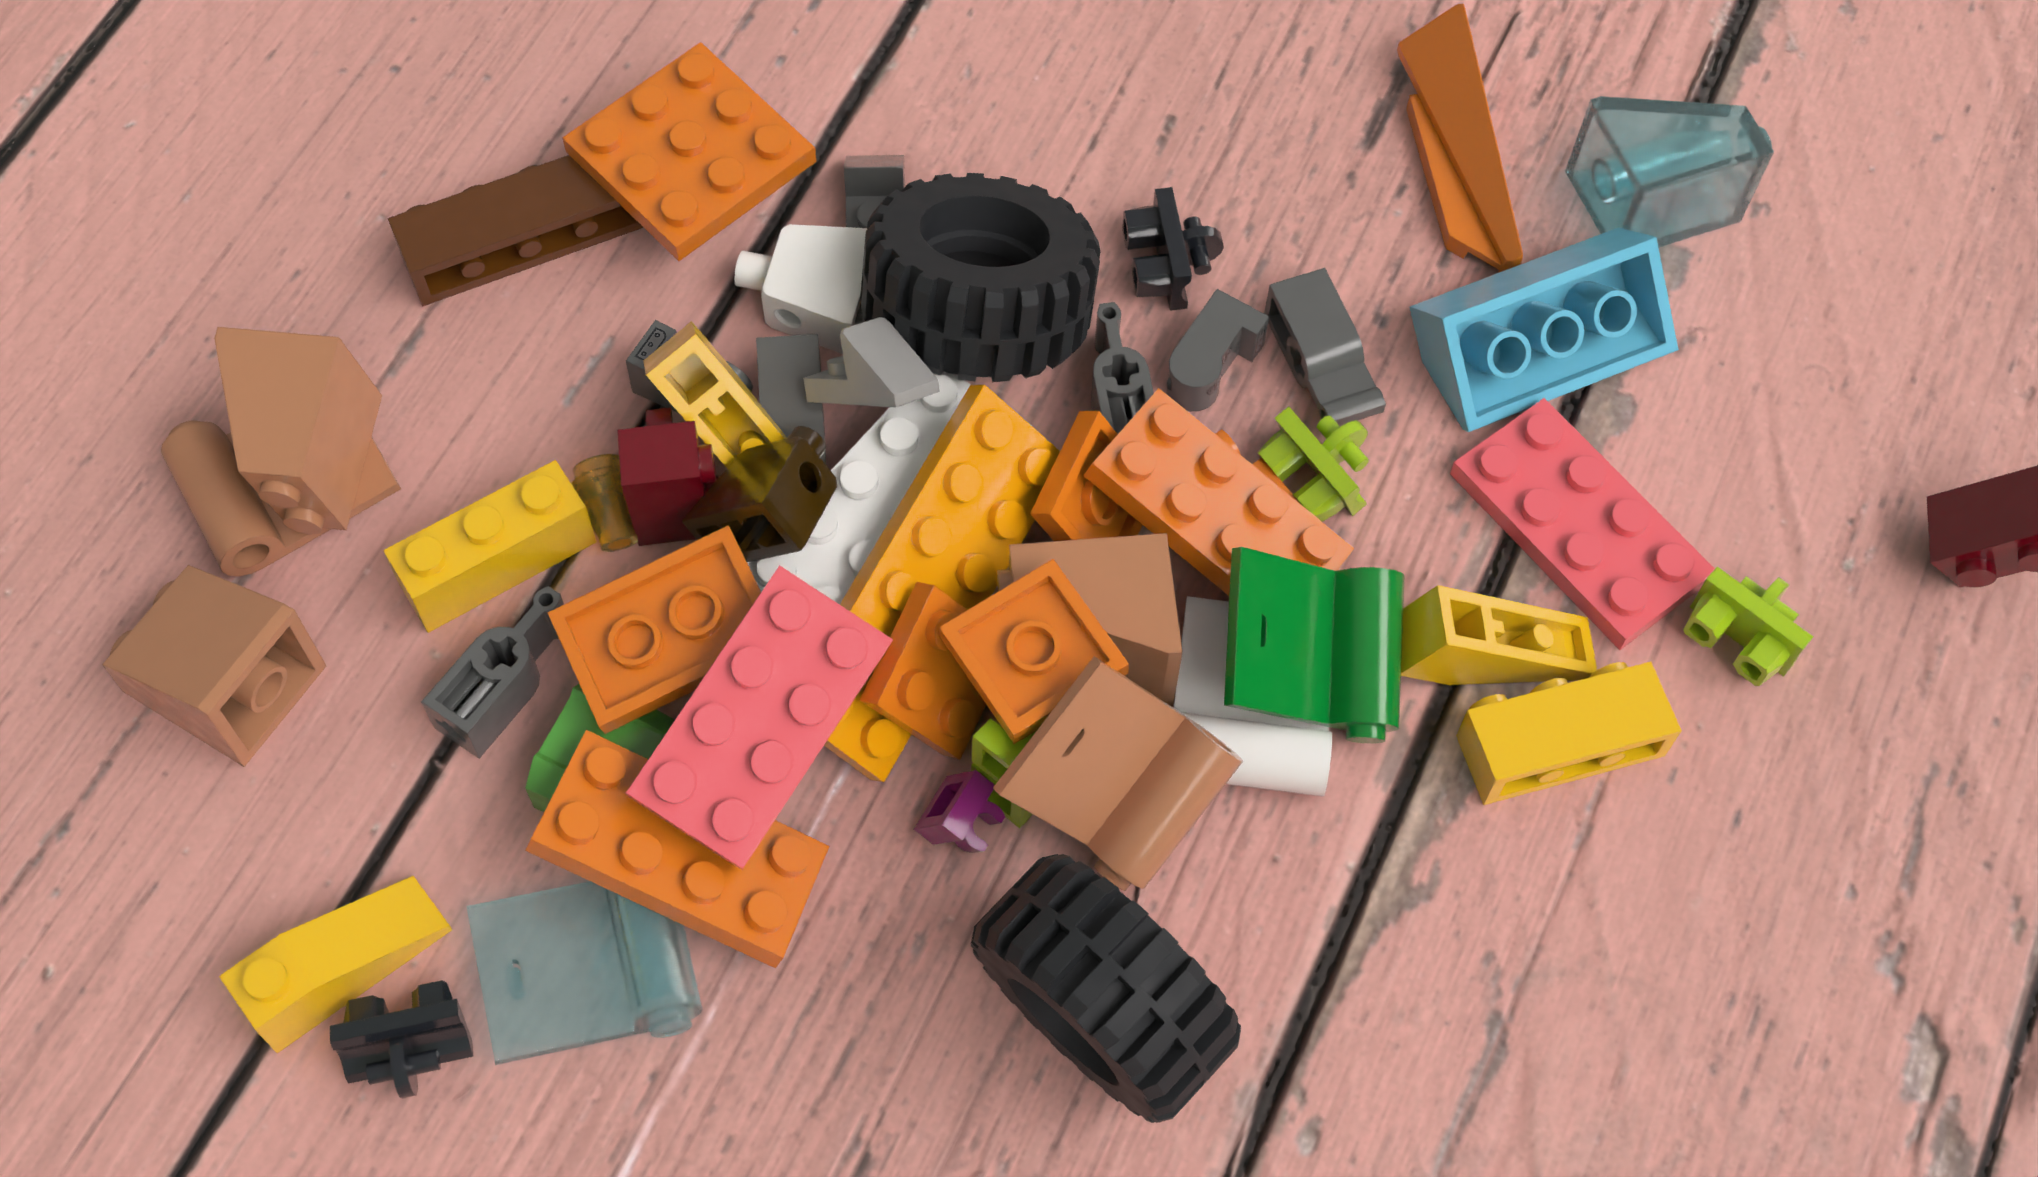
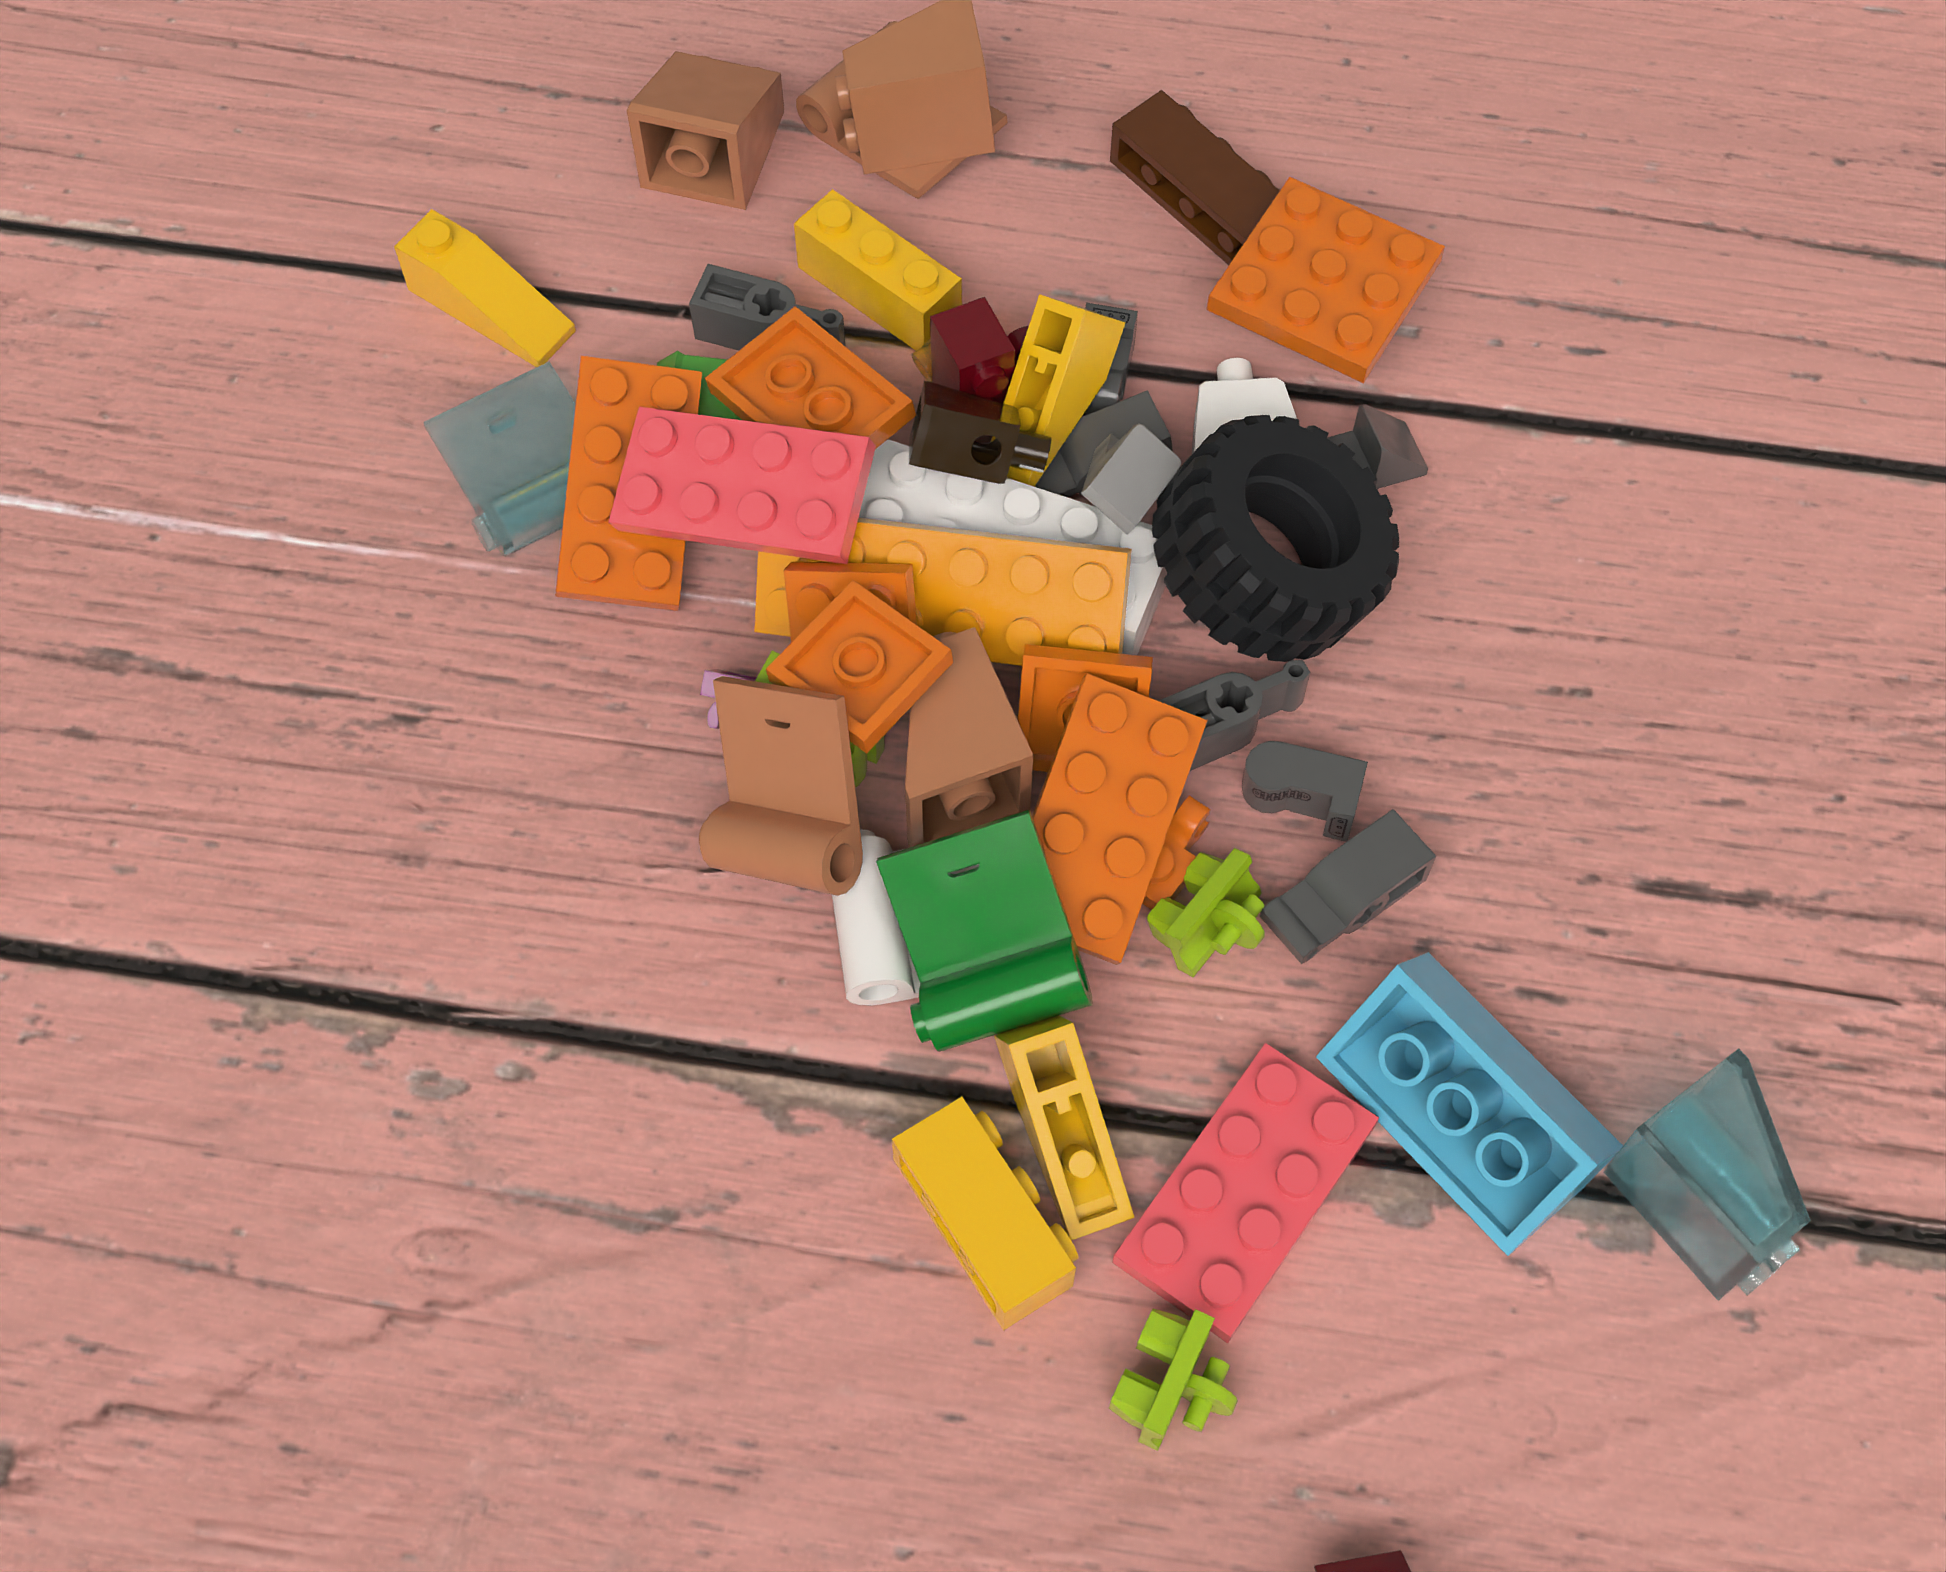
camera: 75 degrees right, 0 degrees up
(403, 1042) = (419, 356): black hips -> none
(1107, 986) = (555, 817): black tyre -> none
(1176, 249) = (1414, 725): black hips -> none
(1459, 141) = (1669, 964): orange wedge -> none

